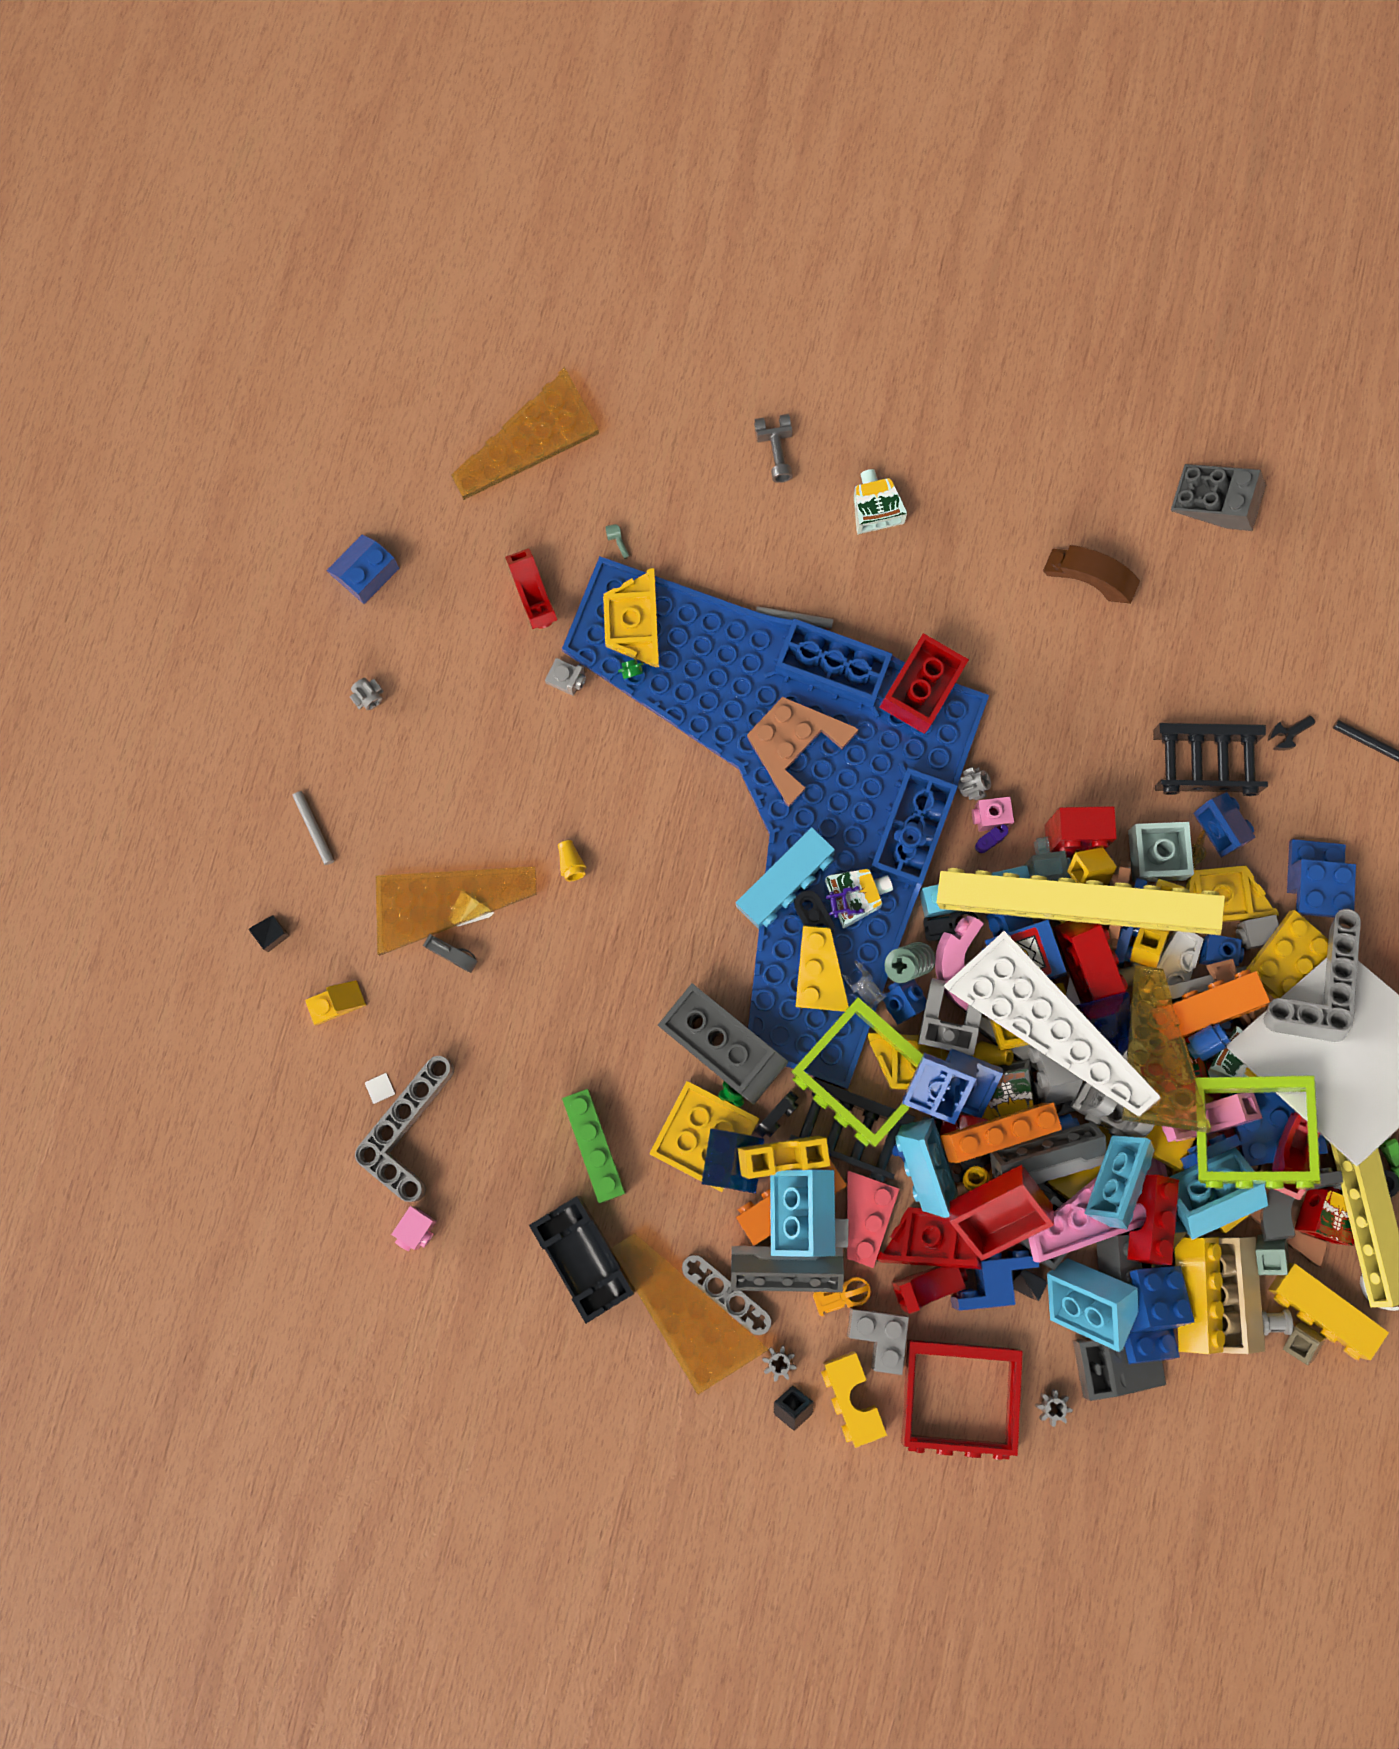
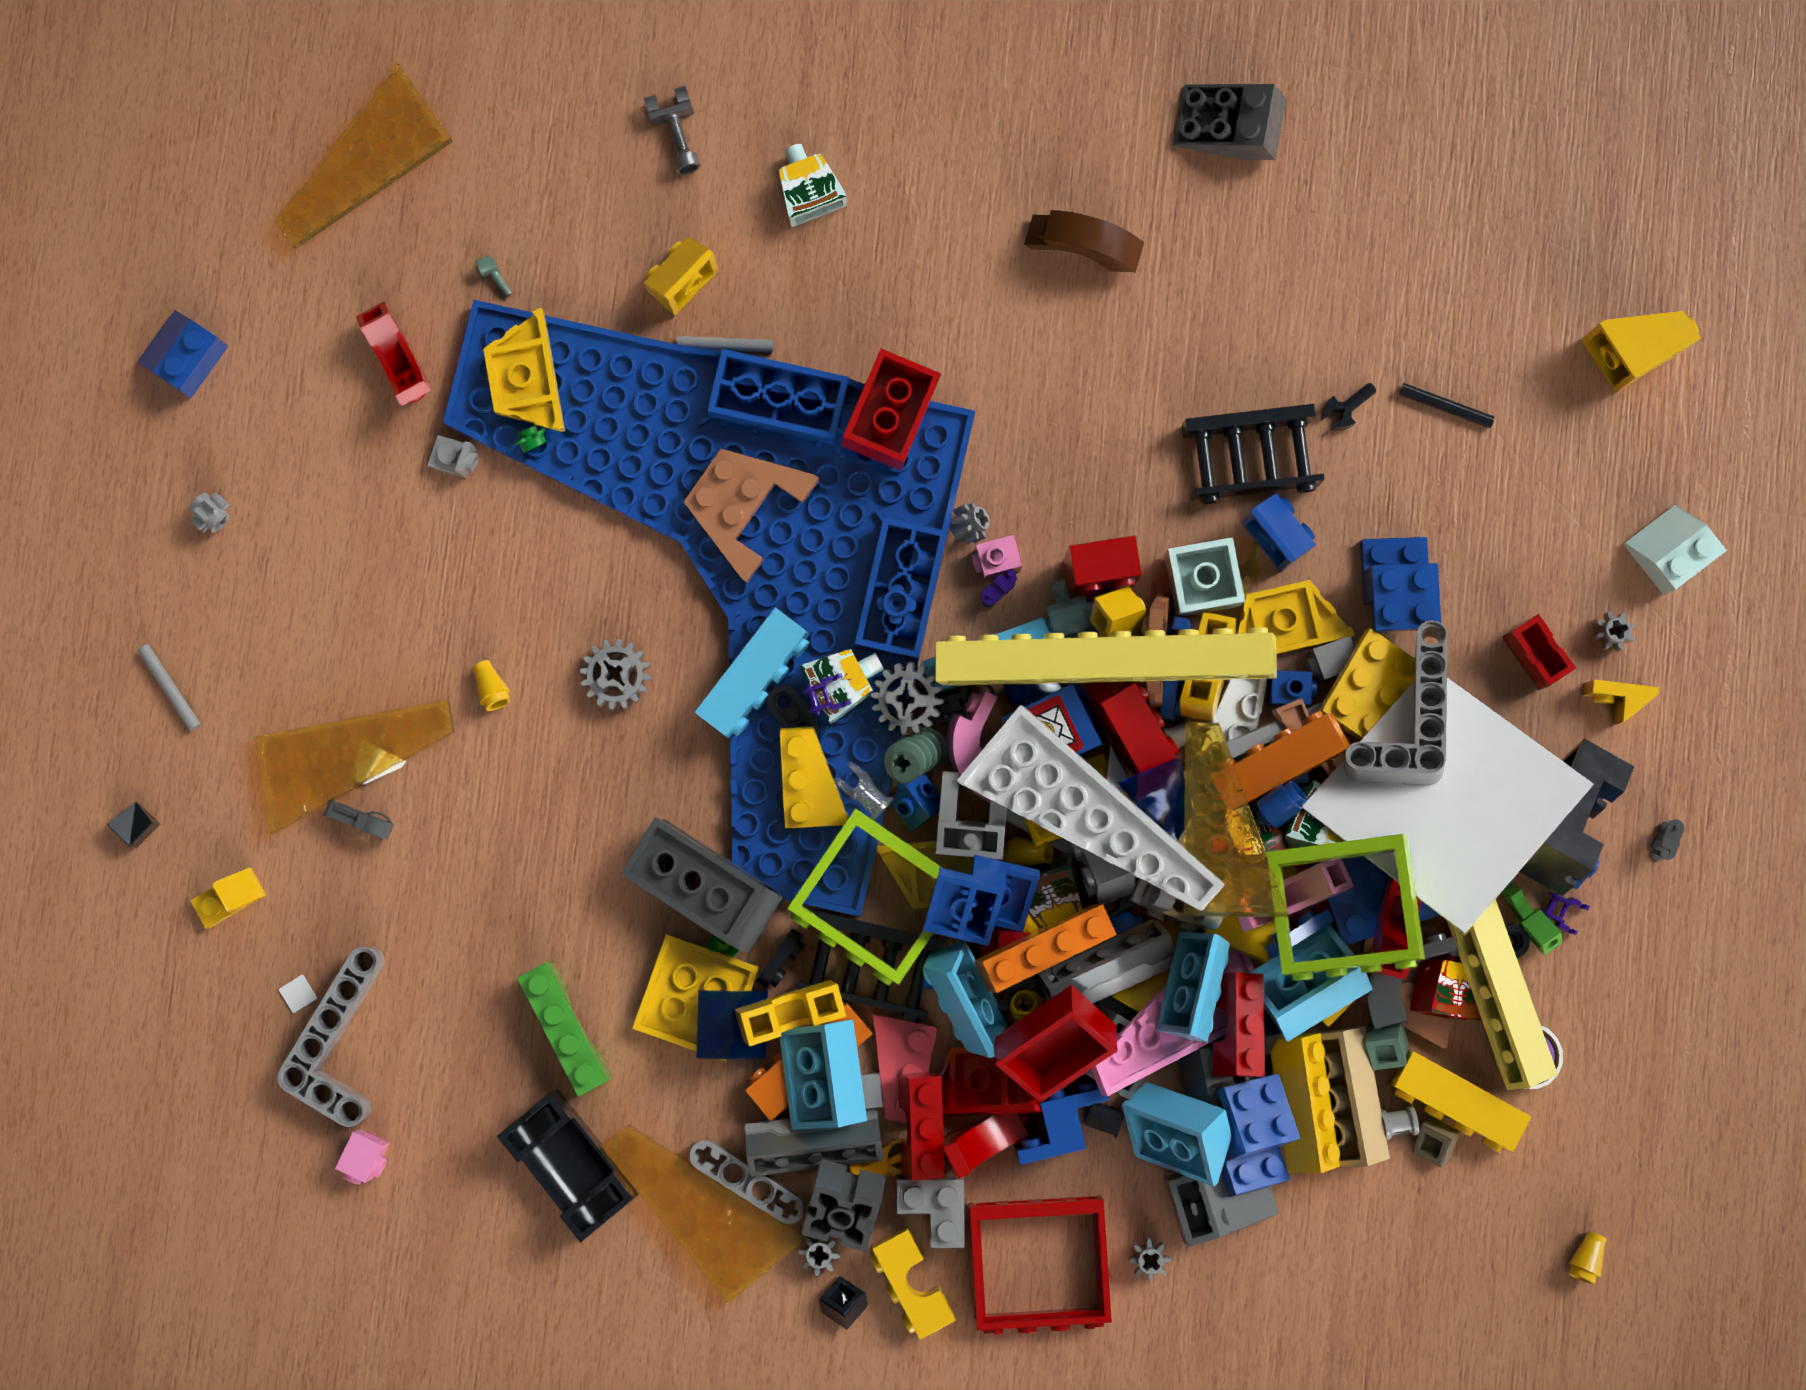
camera: 10 degrees left, 5 degrees up
(663, 872) = (628, 665): none -> light grey gear
(767, 558) = (681, 274): none -> yellow slope
(806, 1324) = (843, 1205): none -> dark grey brick
(882, 1249) = (922, 1102): none -> red arch
(912, 900) = (893, 697): none -> light grey gear

